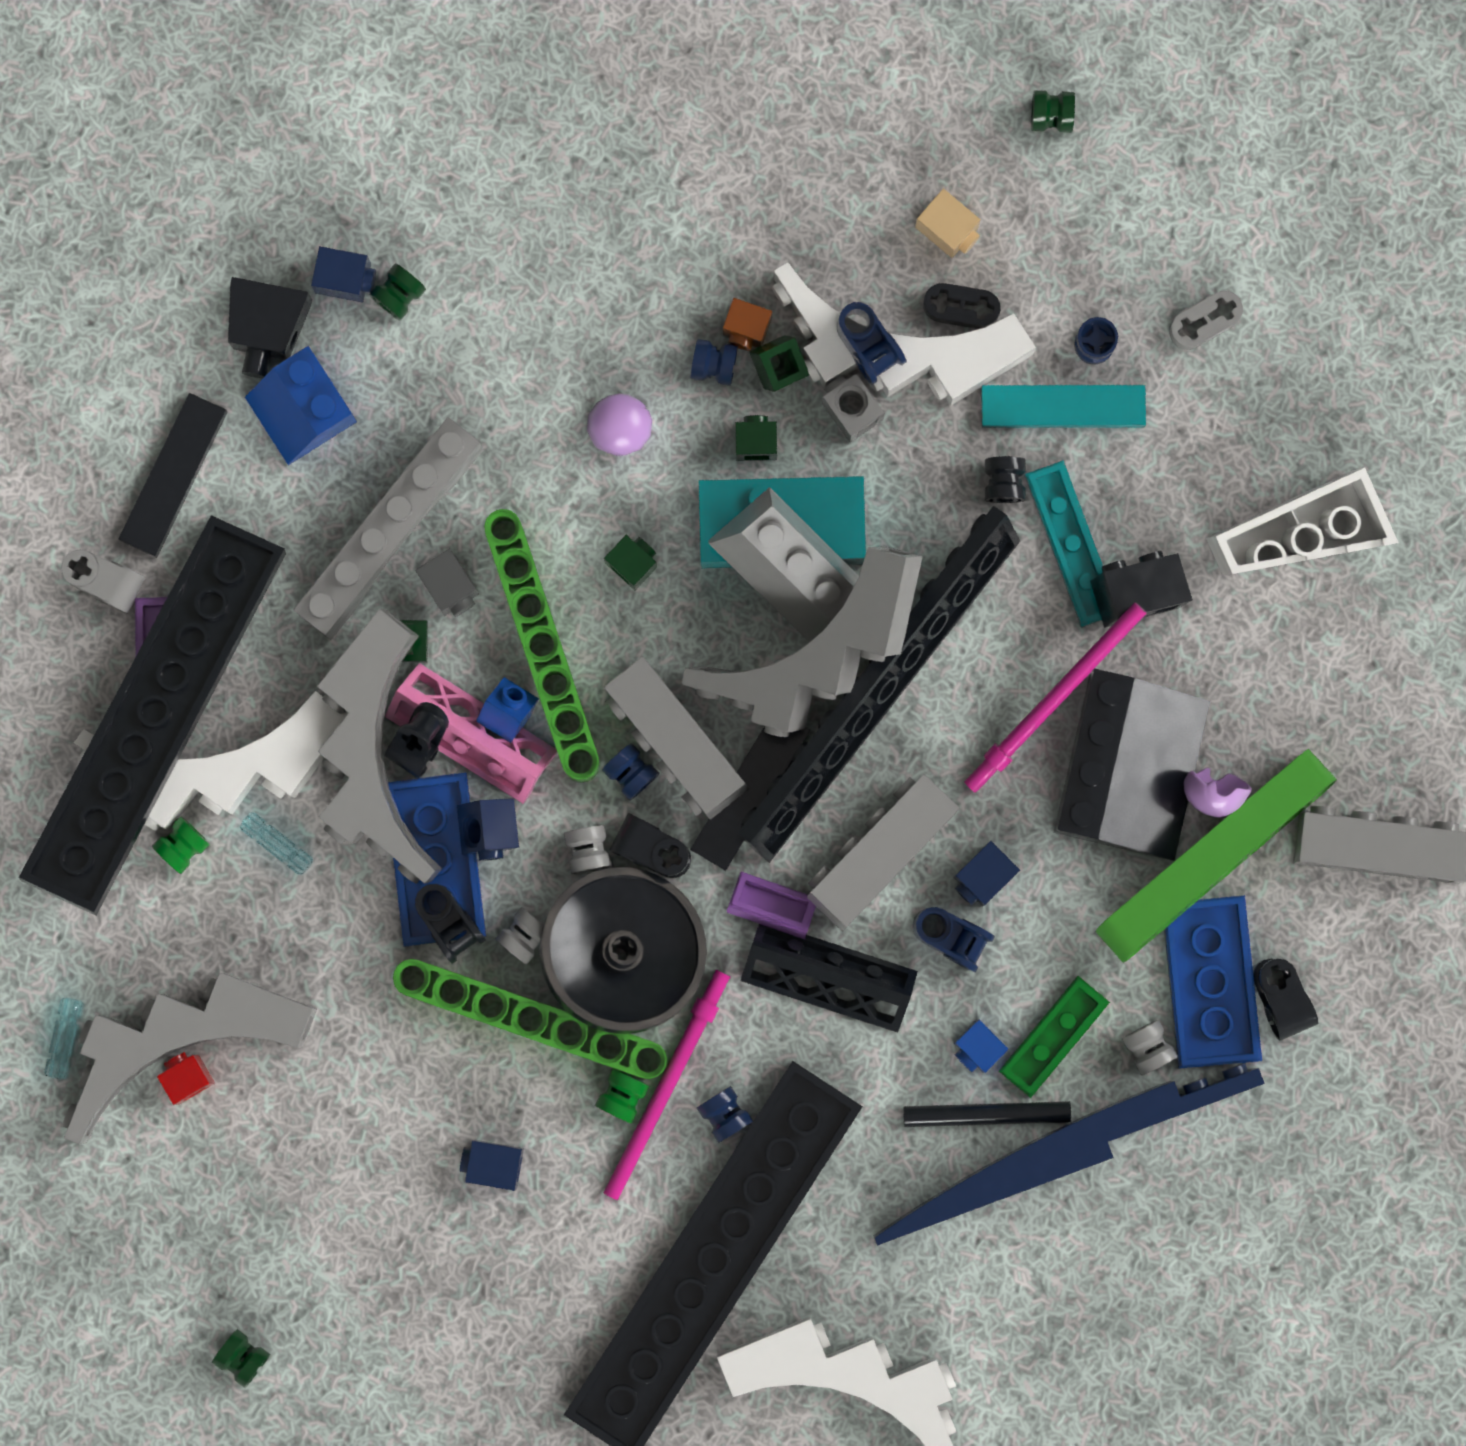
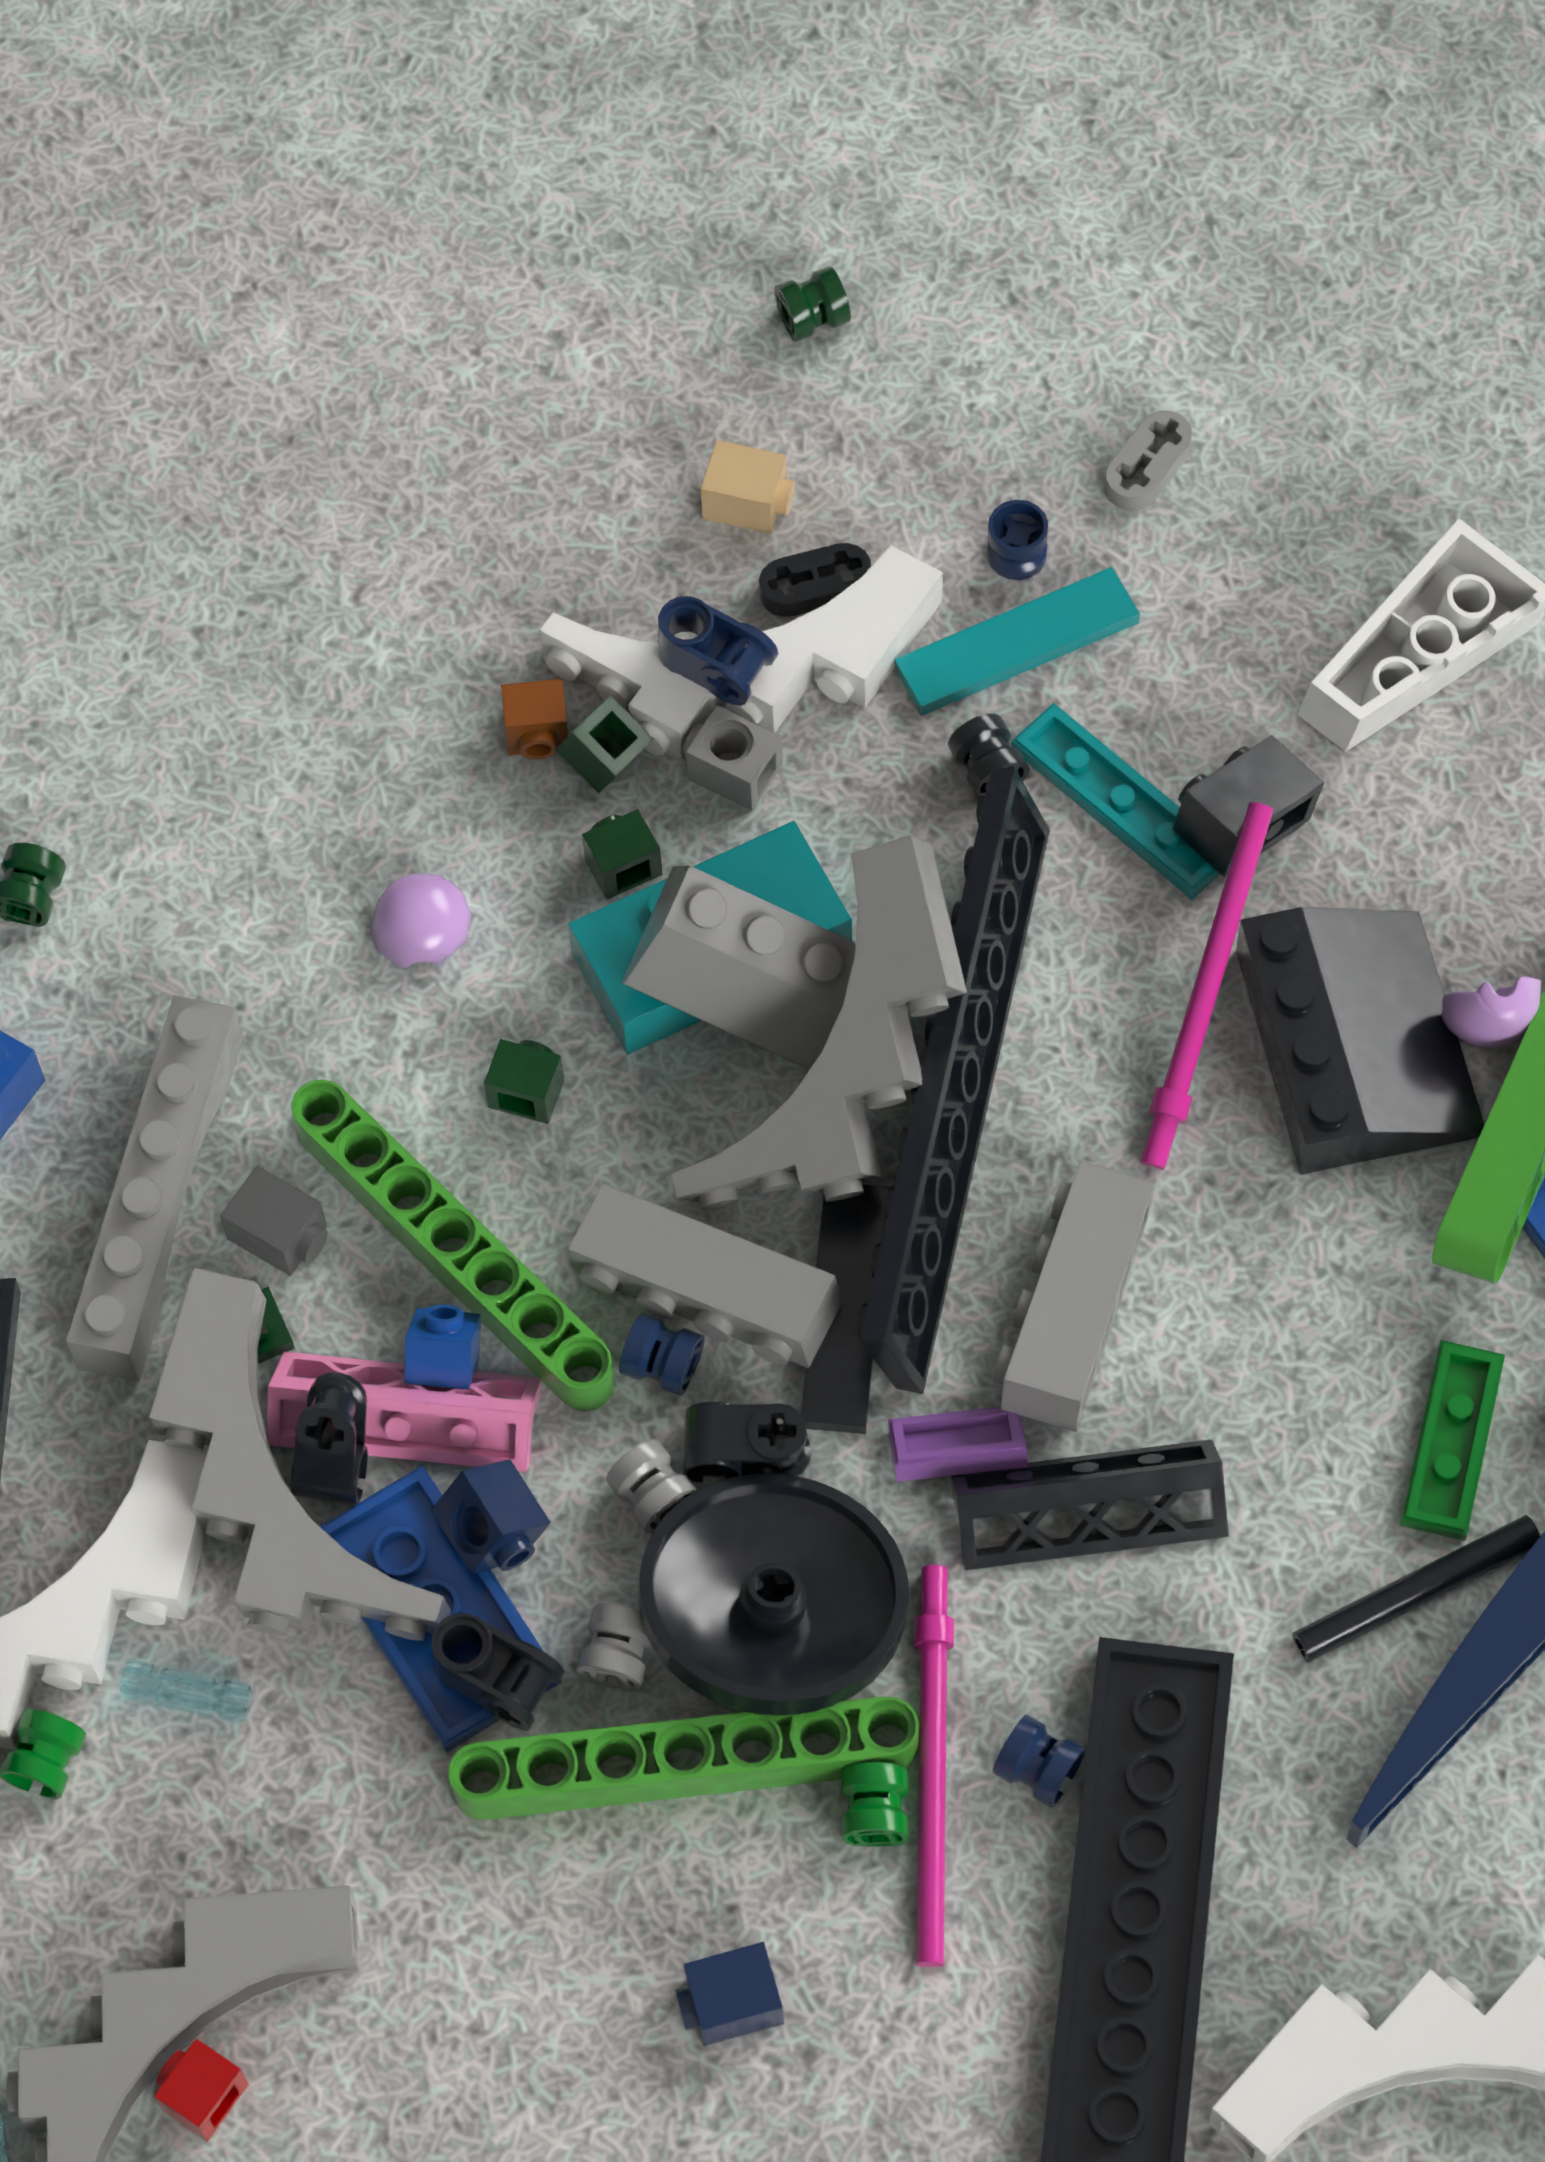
camera: 25 degrees left, 20 degrees down
(713, 362) = (514, 784): dark blue wheel -> none
(954, 938) = (1239, 1366): dark blue piece -> none
(979, 1048) = (1356, 1495): blue plate -> none
(985, 875) = (1237, 1262): dark blue brick -> none

